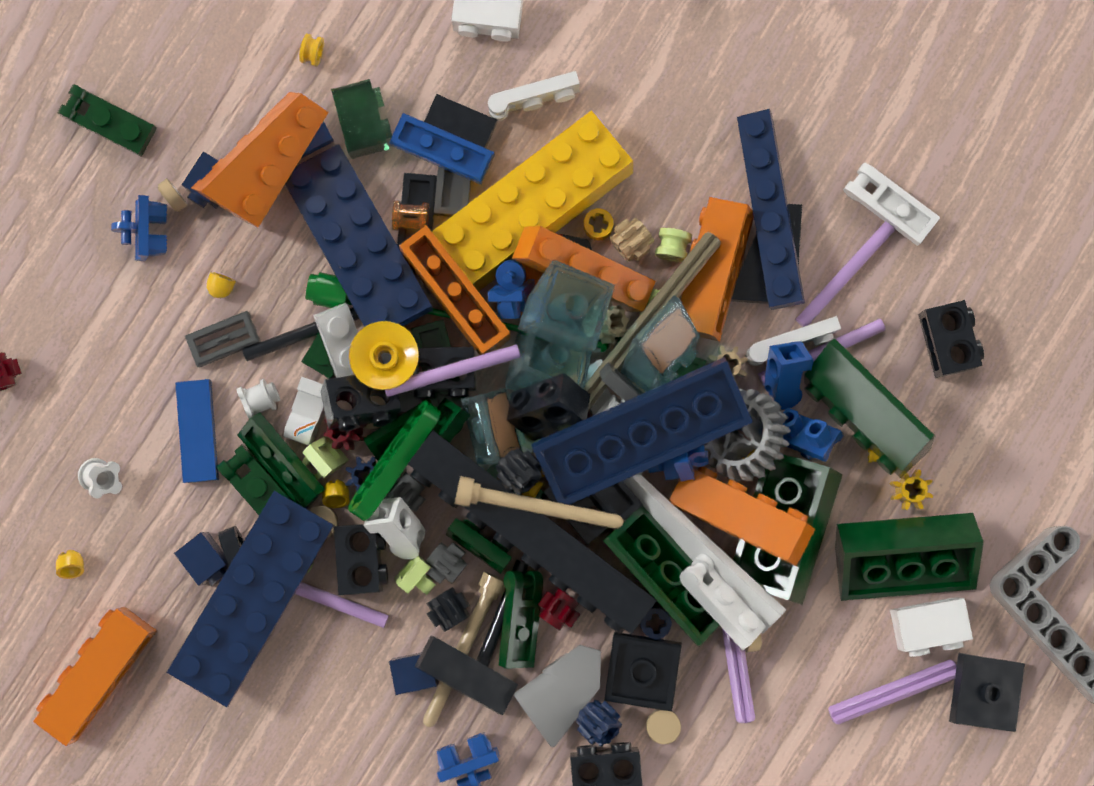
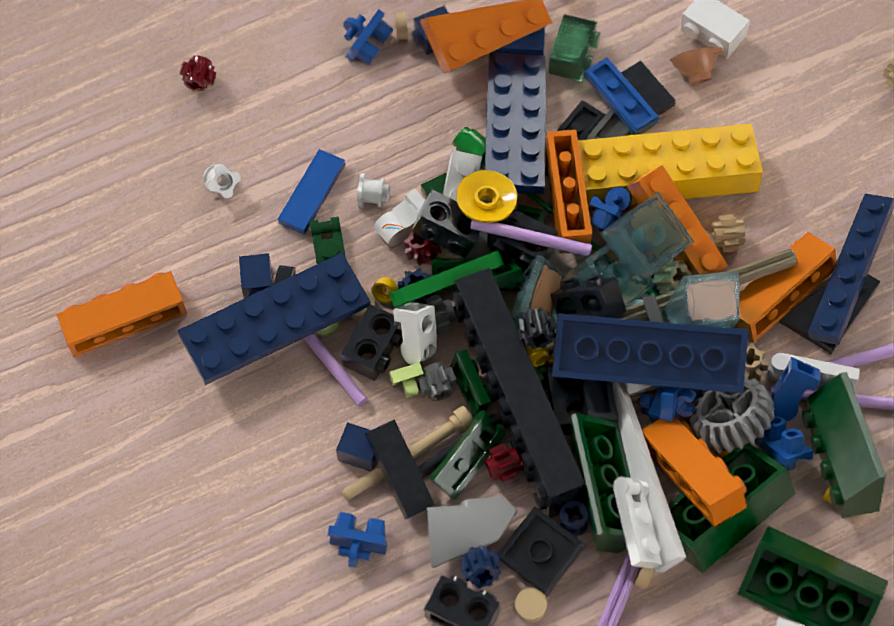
camera: 30 degrees right, 20 degrees down
(69, 565) = (151, 229): yellow hinge -> none
(219, 285) = (395, 102): yellow hinge -> none
(227, 351) = (373, 145): dark grey tile -> none
(280, 461) = (360, 240): dark green plate -> none
(285, 339) = (414, 164): black bar -> none
(324, 457) = (393, 257): yellowish green tile -> none
(400, 210) = (562, 121): clear orange bush -> none
(448, 609) = (416, 416): black gear -> none
(471, 492) = (489, 321): tan piece -> none
(496, 66) = (697, 63): none -> nougat piece
(533, 95) = (713, 97): white plate -> none
(589, 229) = (707, 203): yellow bush -> none
(673, 244) = (759, 249): yellowish green wheel -> none
(903, 495) = (848, 545): yellow gear -> none

